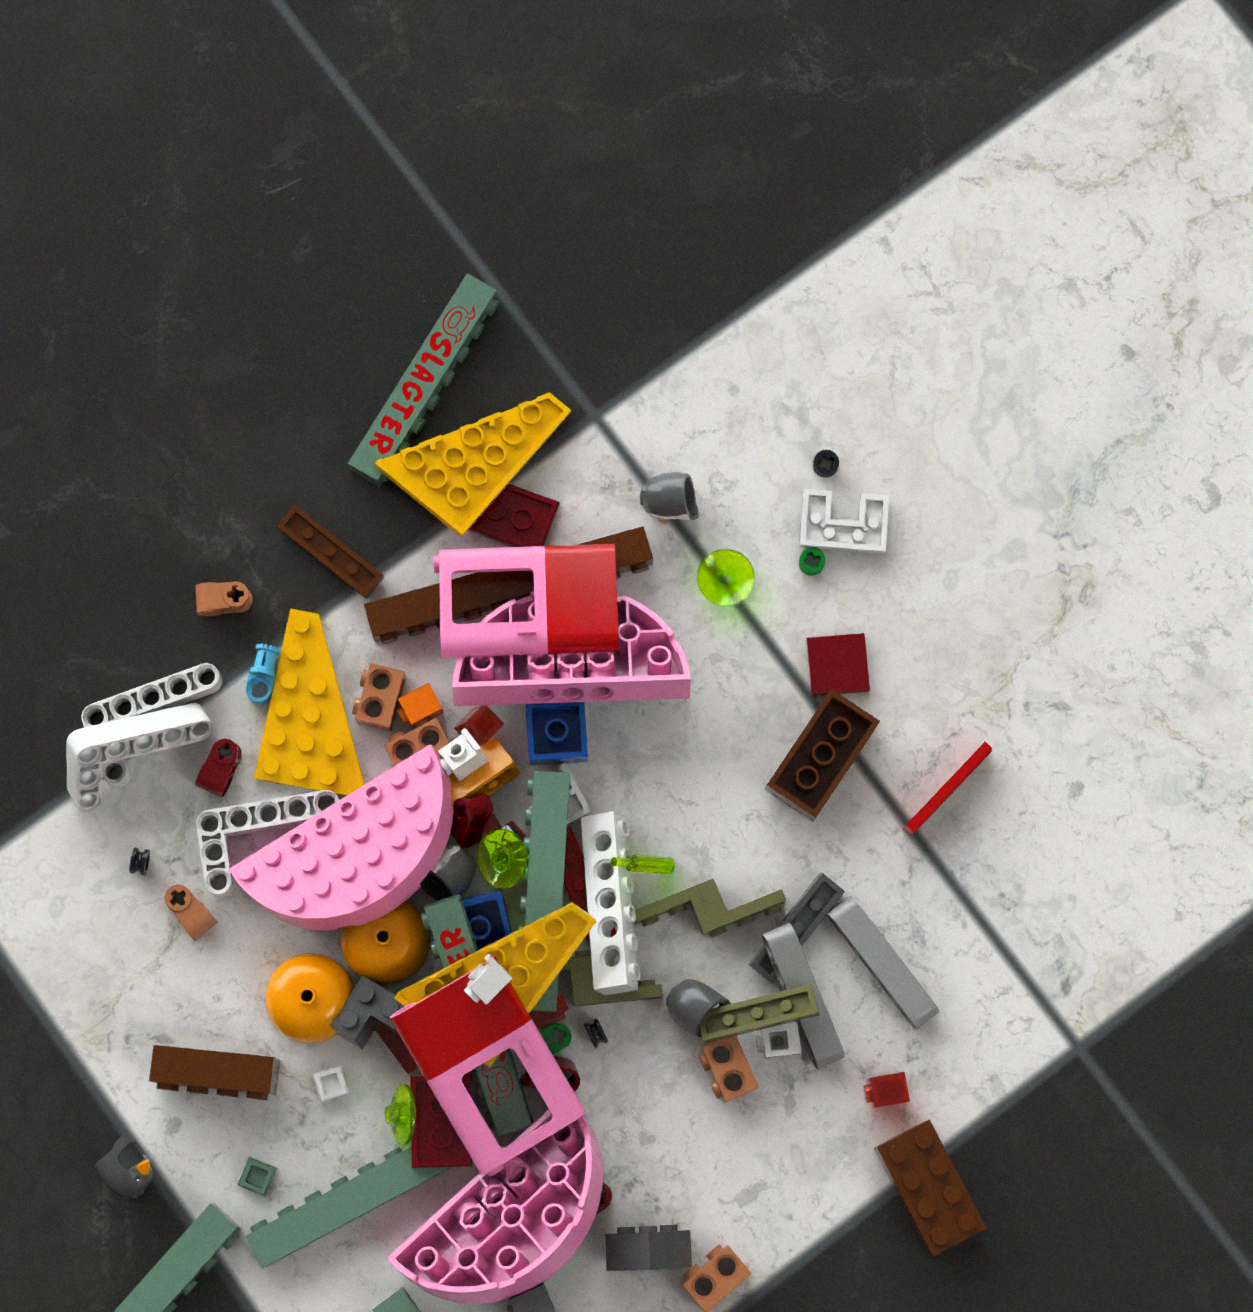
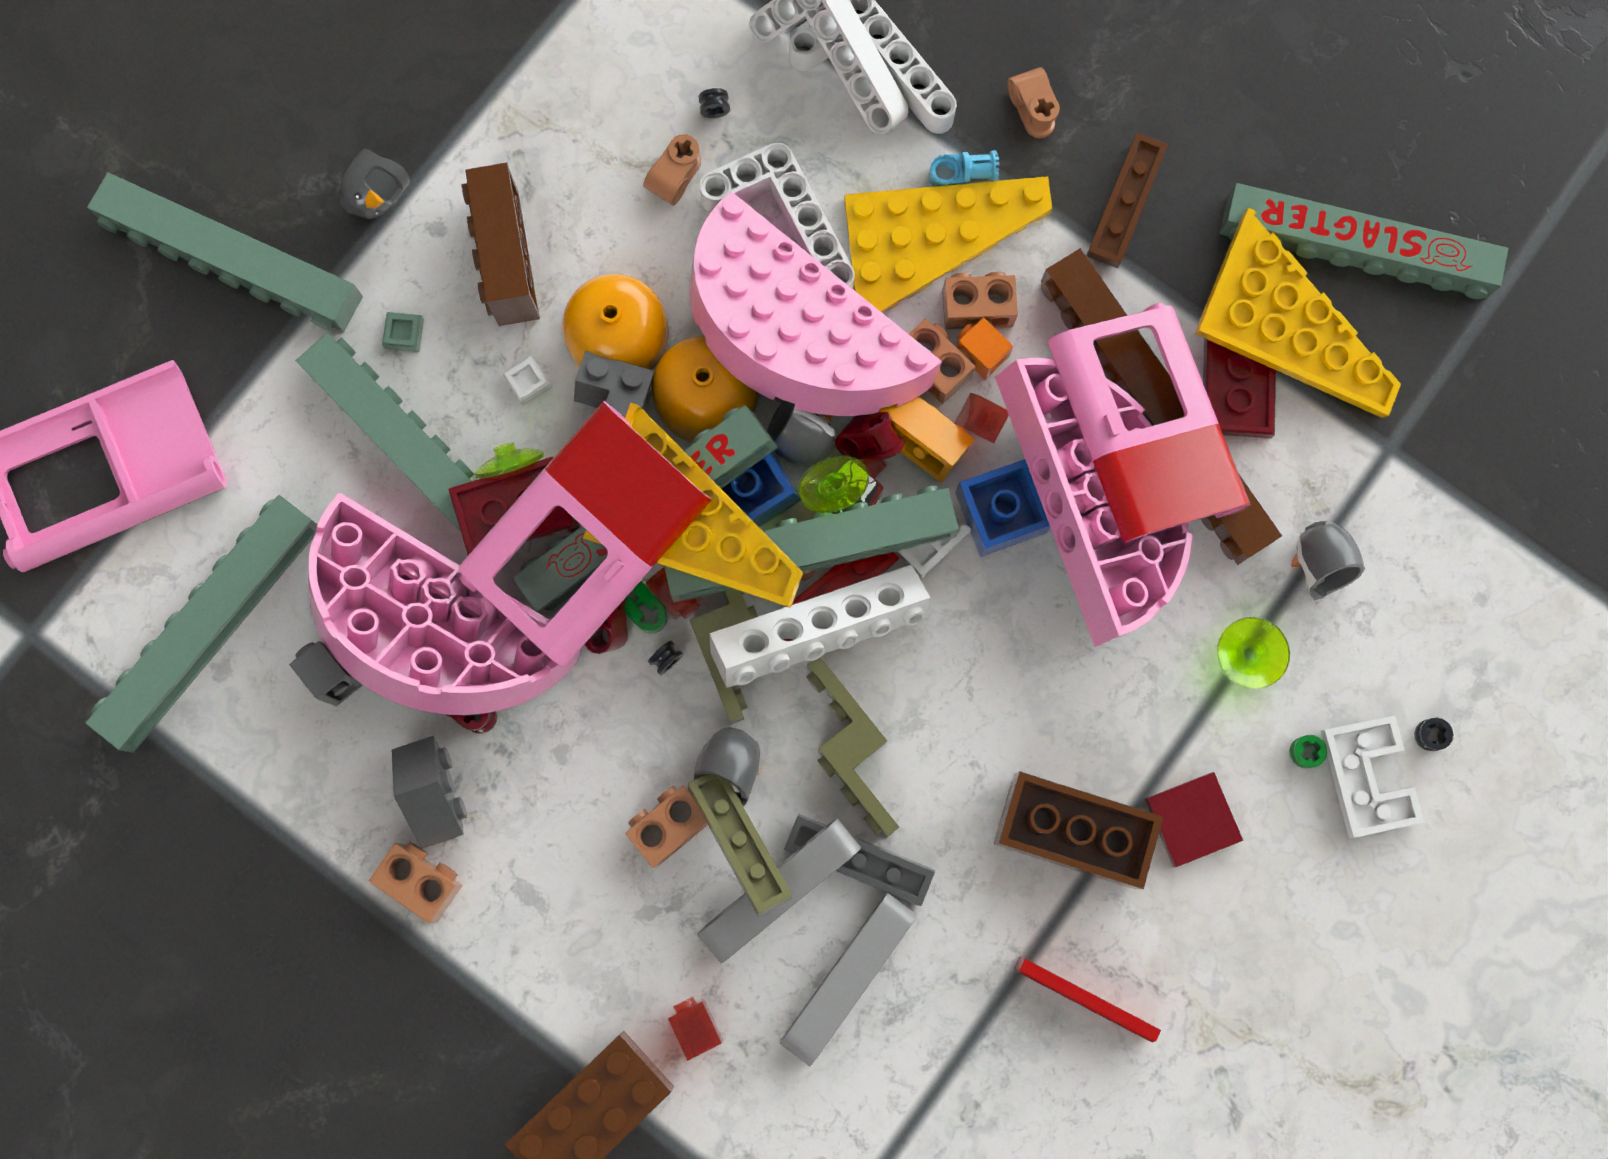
camera: 75 degrees right, 0 degrees up
(218, 772) = (841, 153): dark red piece -> none
(462, 756) = (939, 405): white brick -> none
(487, 980) = (675, 493): white brick -> none
(645, 864) = (879, 653): clear neon green axle -> none
(788, 1033) = (716, 893): white brick -> none

